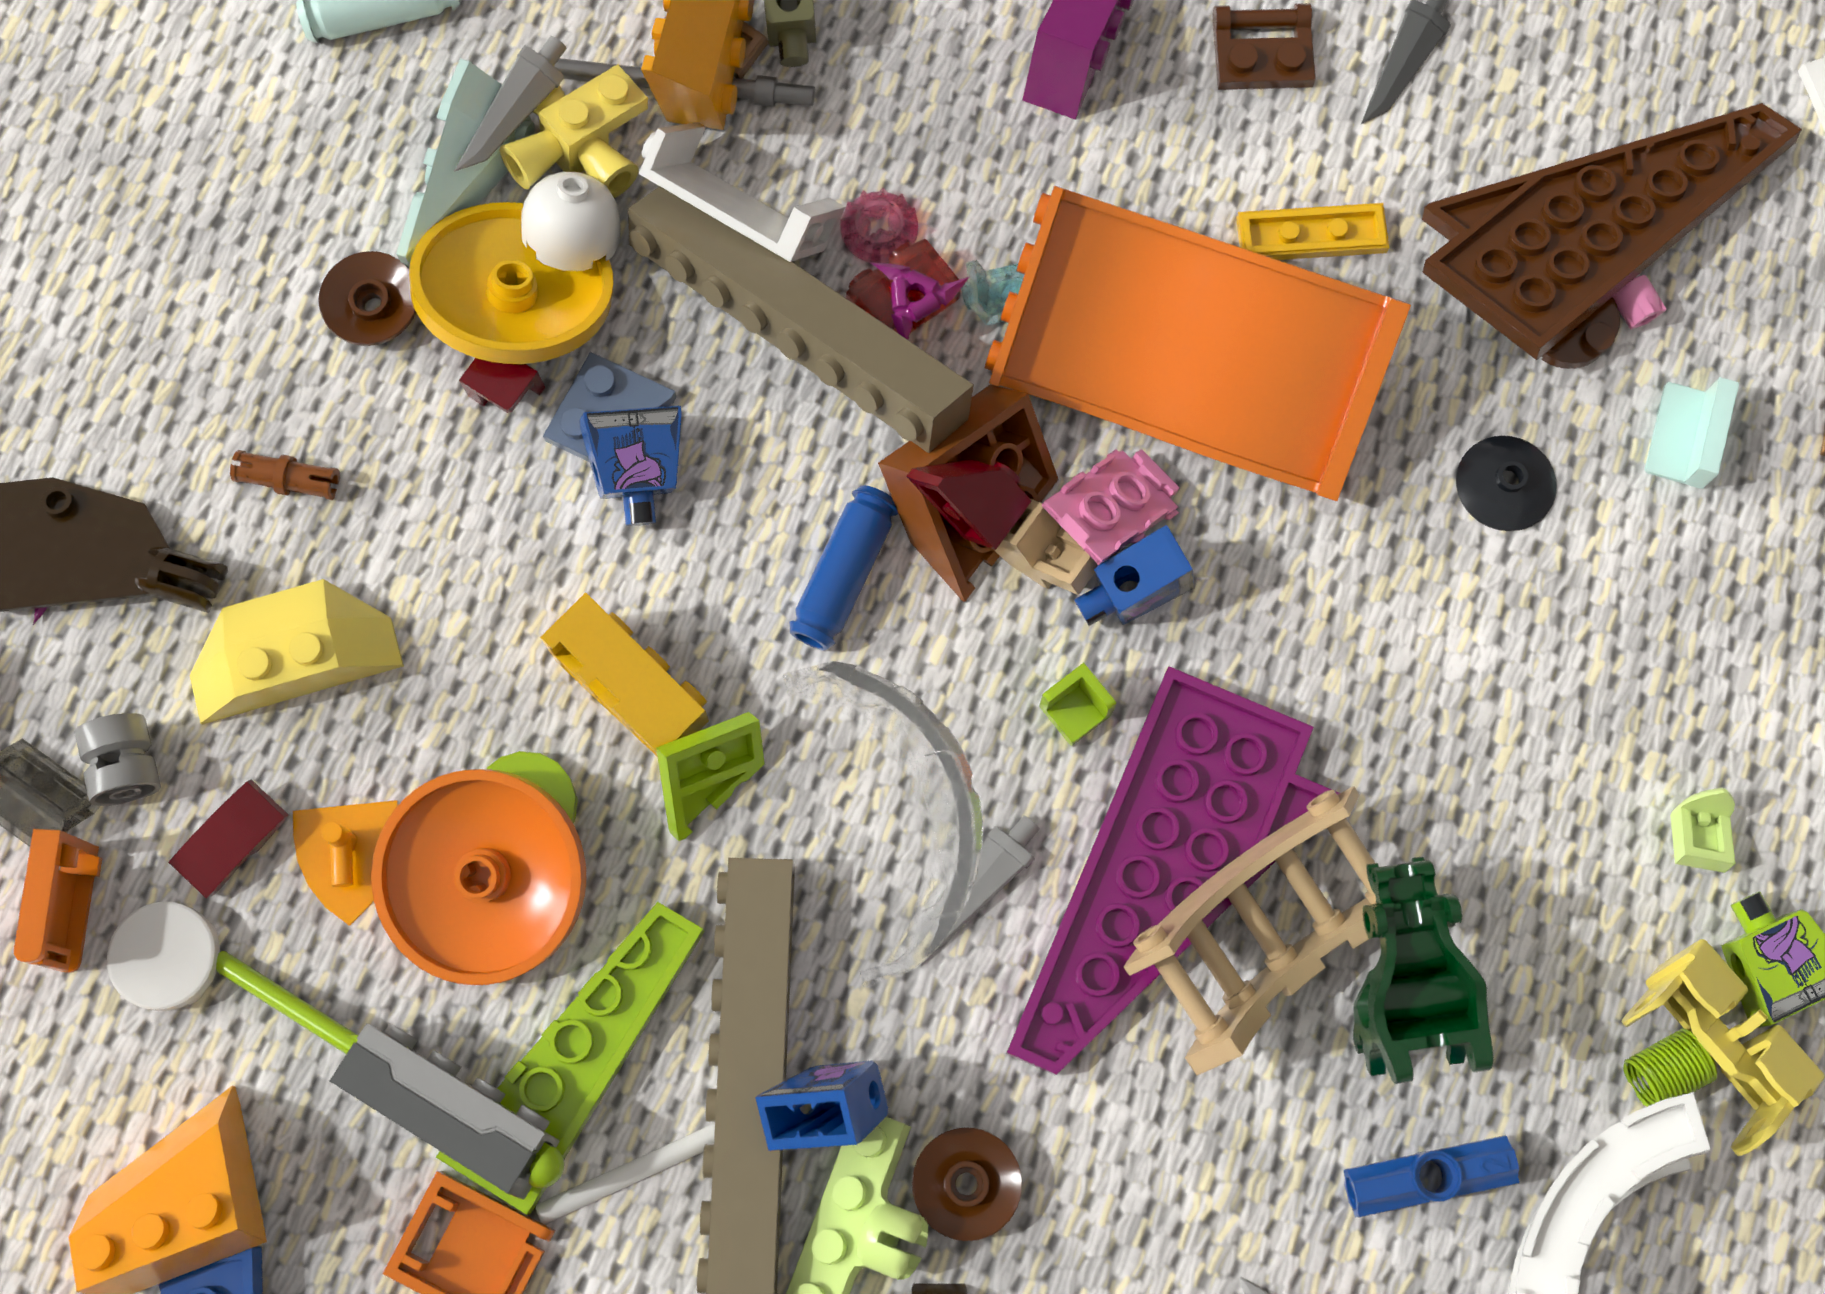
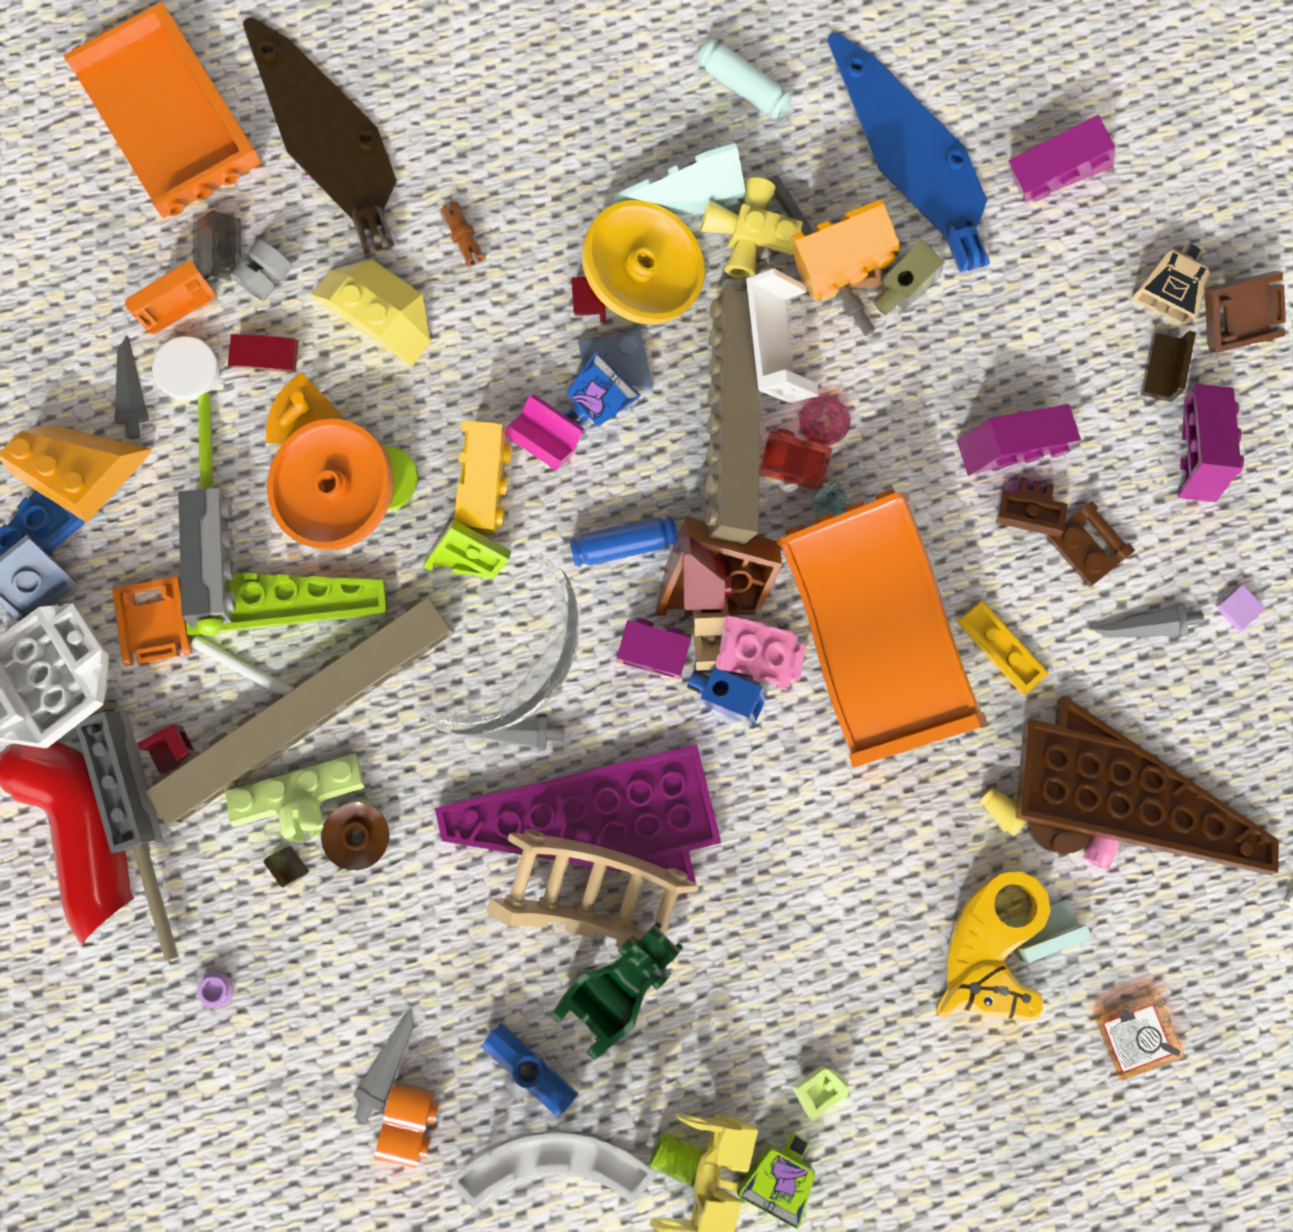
camera: 50 degrees right, 5 degrees up
(139, 1064) = (129, 400): none -> dark grey bar
(353, 284) = (579, 187): reddish brown dish -> none
(521, 93) = (747, 187): light grey bar -> none
(570, 221) = (698, 265): white cylinder -> none
(629, 558) = (545, 432): none -> dark pink panel
(844, 1102) = (338, 737): blue torso -> none
(906, 280) = (781, 467): magenta piece -> none
(1008, 629) = (653, 648): none -> magenta brick
(1077, 704) = (640, 712): lime panel -> none
(1174, 76) = (1032, 509): none -> reddish brown hinge
(1493, 499) = (923, 851): black dish -> none
(1512, 373) = (1003, 811): none -> light yellow cone
(1653, 510) = (977, 950): none -> yellow animal

